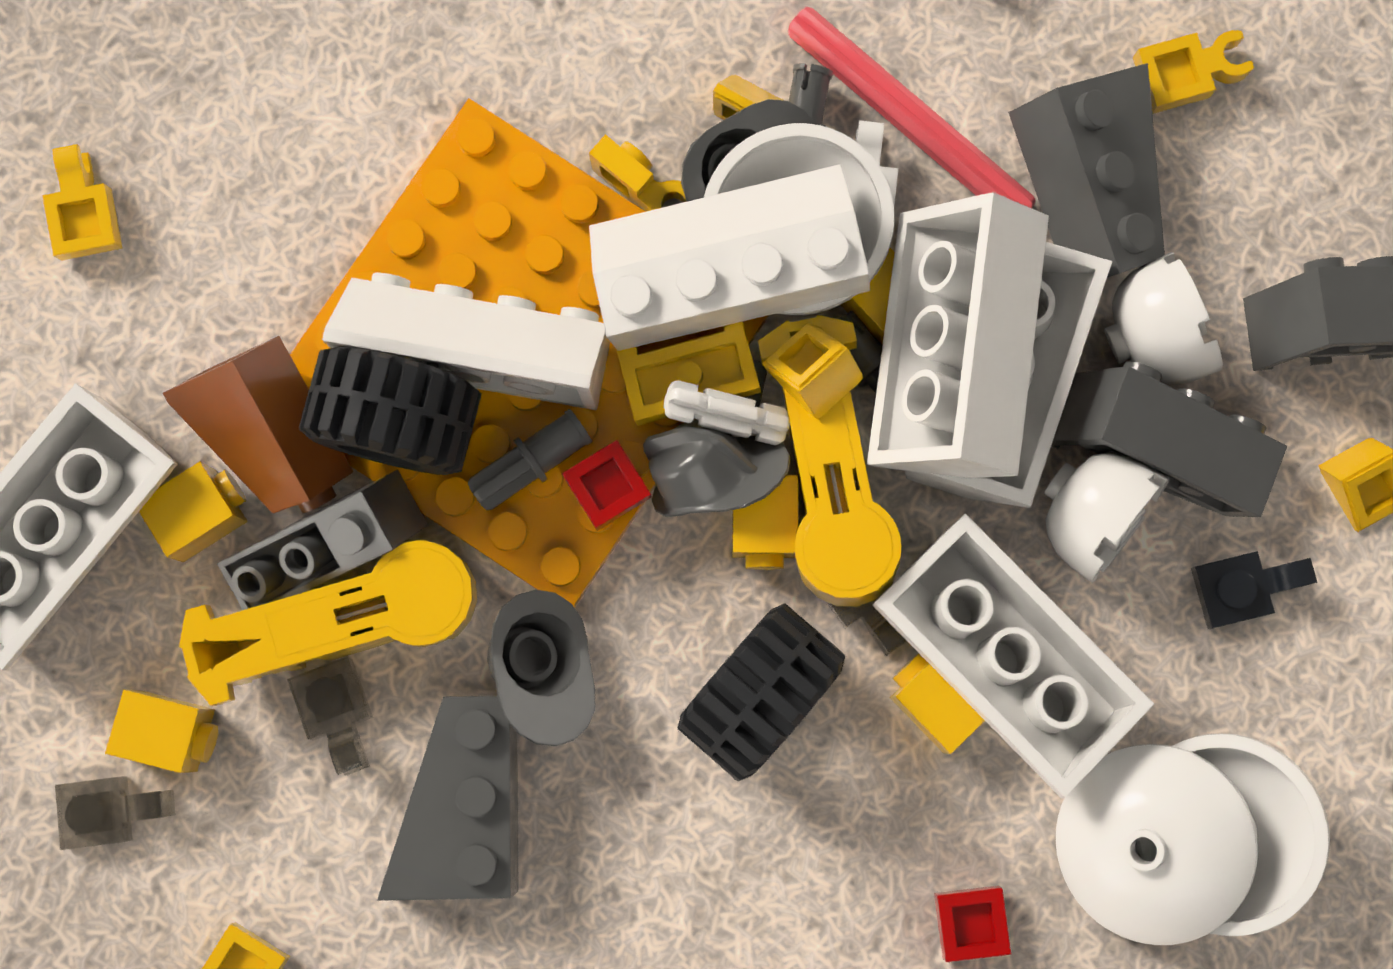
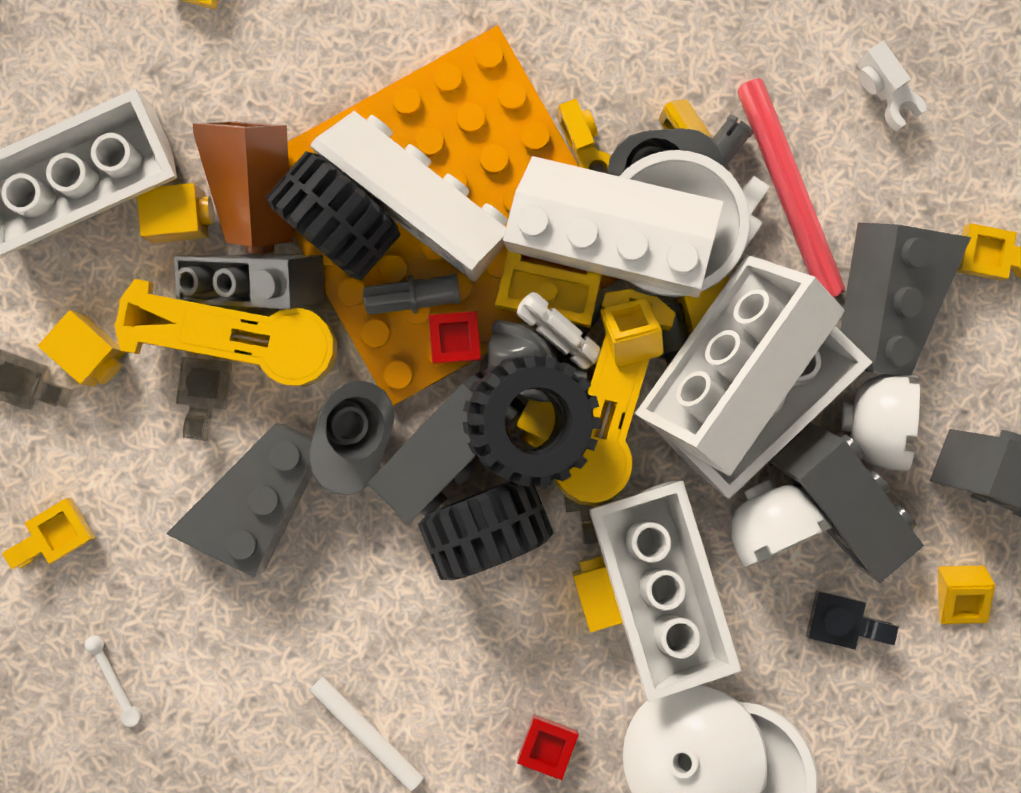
camera: 25 degrees right, 5 degrees up
(663, 622) = (433, 458): none -> dark grey wedge
(800, 511) = (571, 429): none -> black tyre

